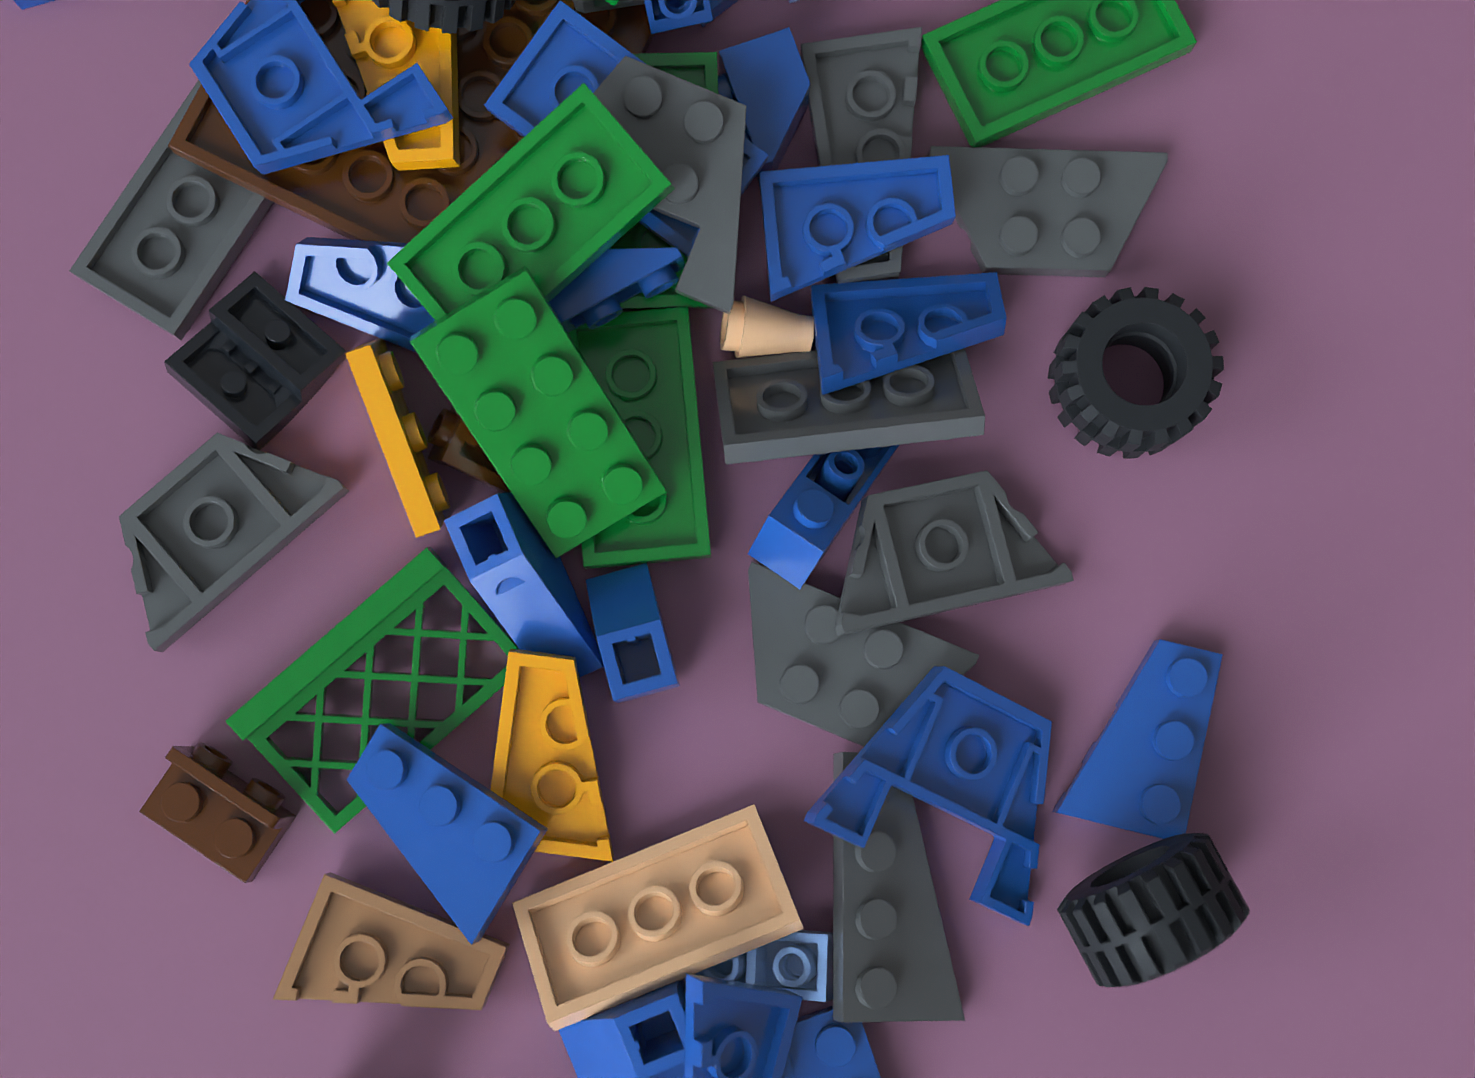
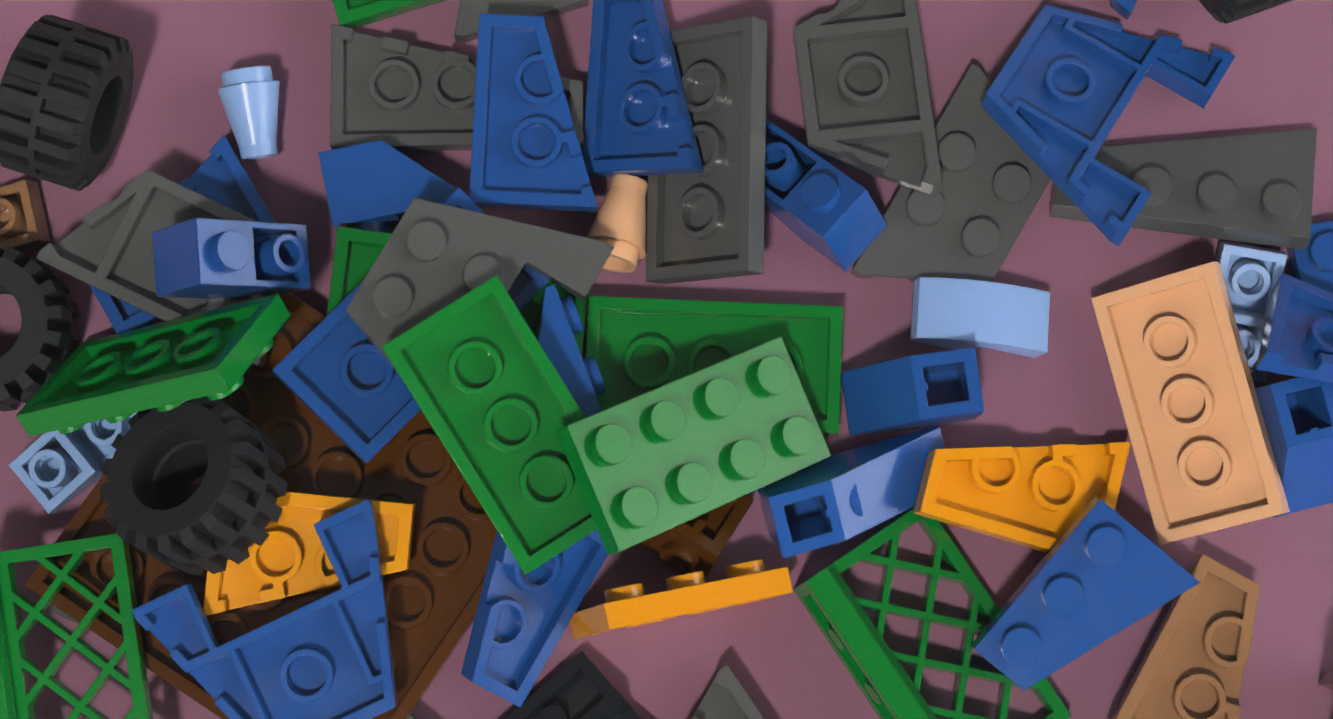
camera: 80 degrees left, 0 degrees up
(720, 694) = (980, 314): none -> light blue slope

